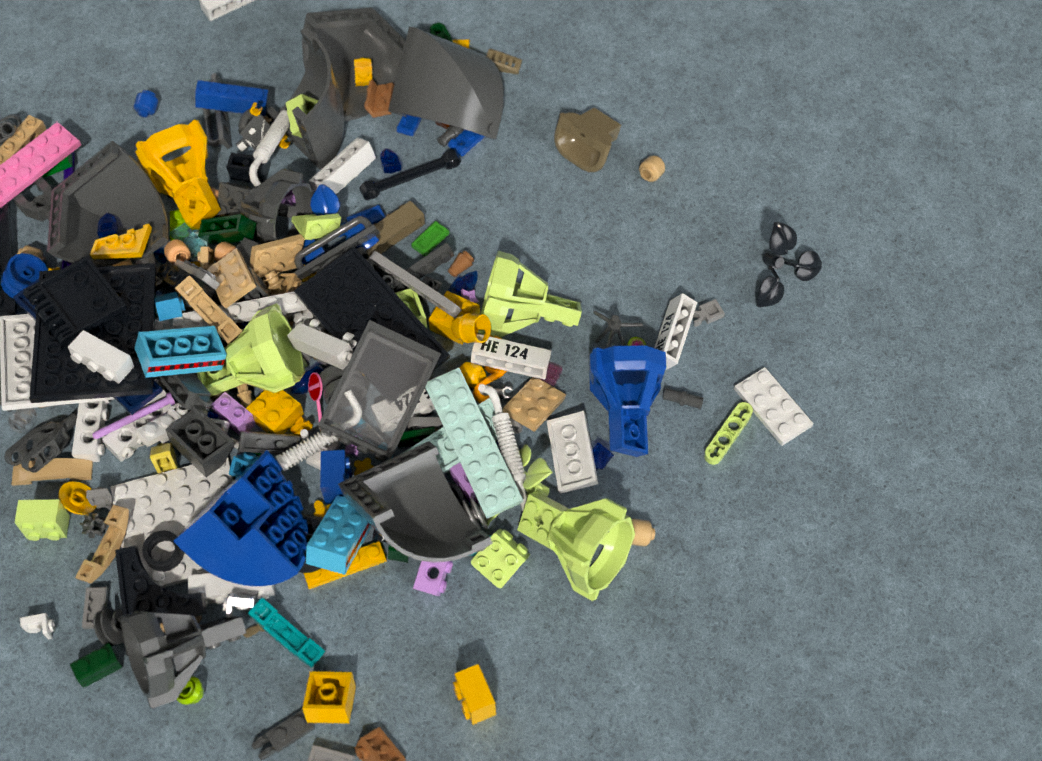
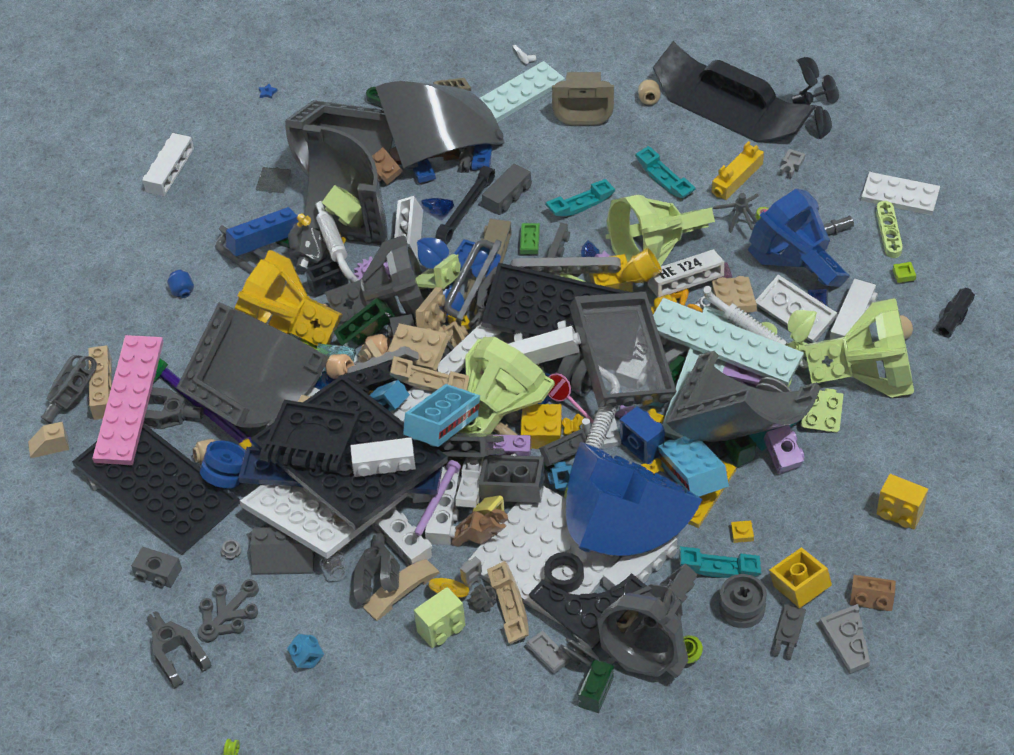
camera: 35 degrees left, 10 degrees down
(35, 623) = (515, 691): white bracket -> none
(107, 226) = (253, 387): clear blue plate -> none
(123, 246) = (292, 385): yellow wing -> none
(140, 465) = (480, 527): none -> medium nougat plate
(242, 601) = (660, 565): white bracket -> none
(269, 681) = (742, 601): none -> dark grey wheel
(293, 58) = (273, 180): none -> clear smoke piece
(336, 619) = (742, 531): none -> yellow plate
(454, 182) = (506, 189): none -> dark grey brick
(461, 263) = (574, 240): medium nougat cone -> none
(501, 233) = (598, 193): none -> teal slope
(548, 100) = (521, 90): none -> light aqua plate
(585, 72) = (523, 56): none -> white bar
(590, 251) = (662, 174): none -> teal slope
(620, 487) = (855, 304): none -> white brick
(650, 291) = (737, 171): none -> yellow brick
(675, 328) = (777, 176): white brick -> none
(699, 483) = (904, 272): none -> lime plate
(704, 552) = (955, 312): none -> black piece
(711, 216) = (728, 96): none -> black piece

